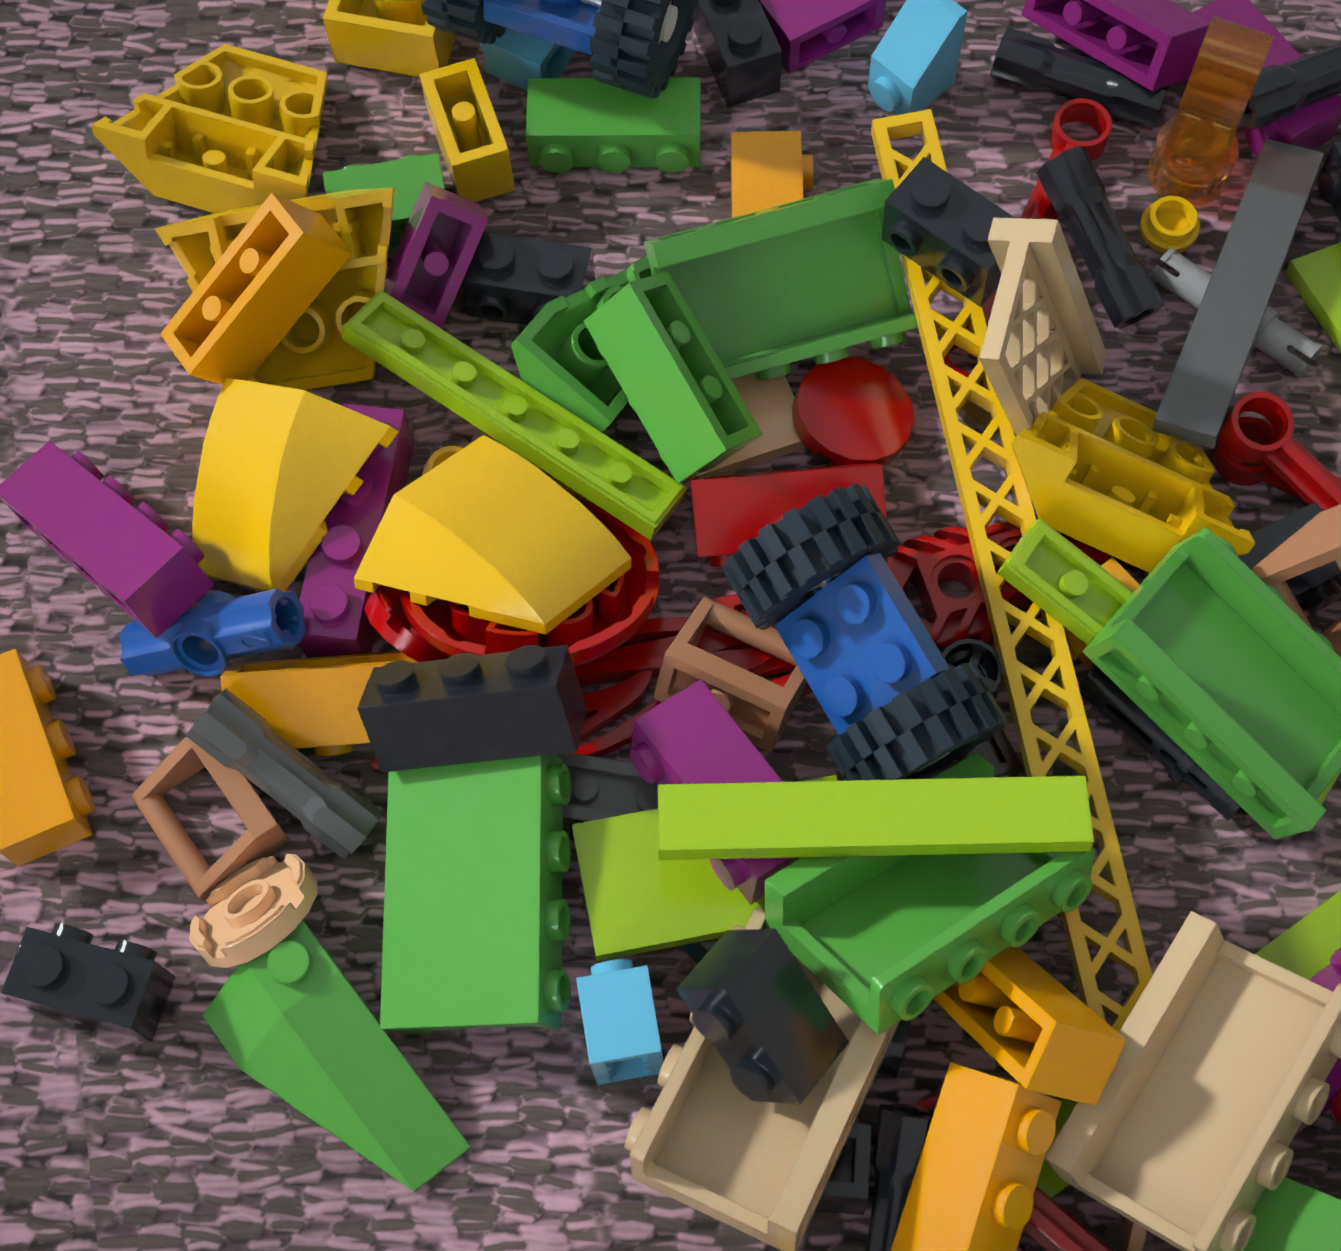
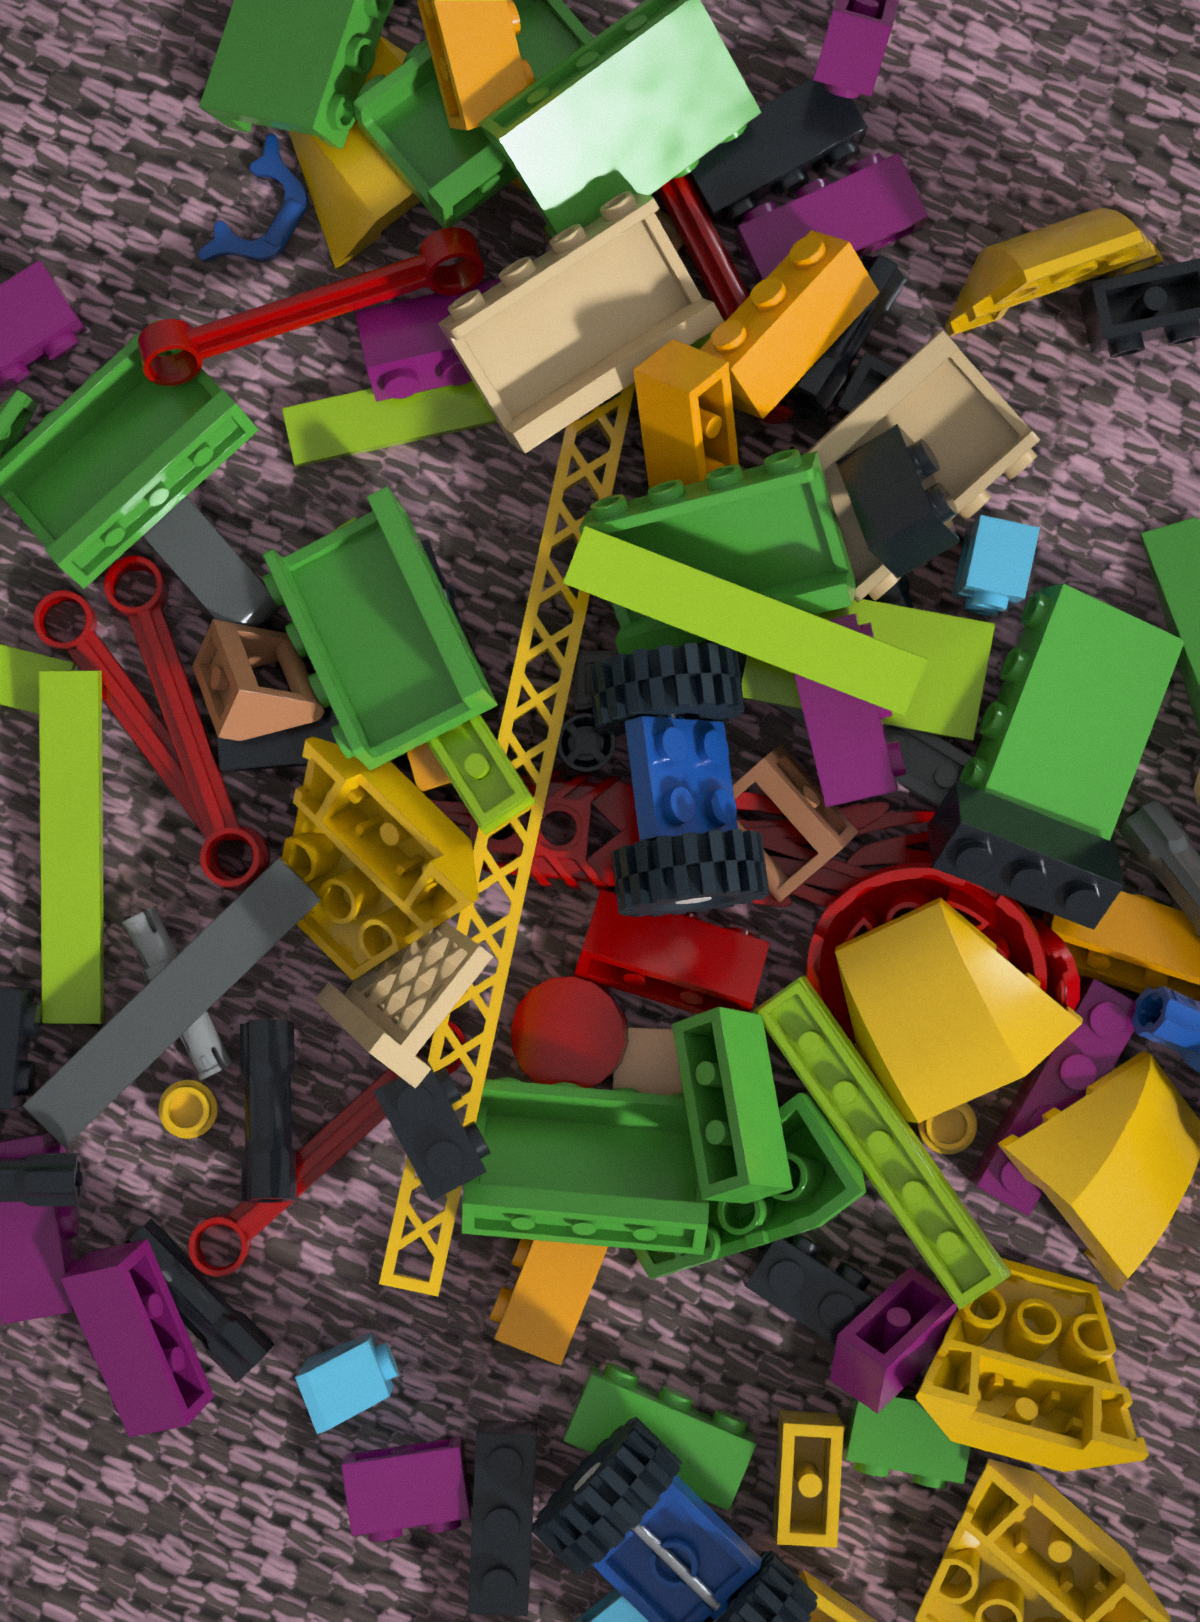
camera: 160 degrees left, 20 degrees up
(255, 292) = (1077, 1343): light orange brick -> none
(1200, 144) = (125, 1171): clear orange beam -> none

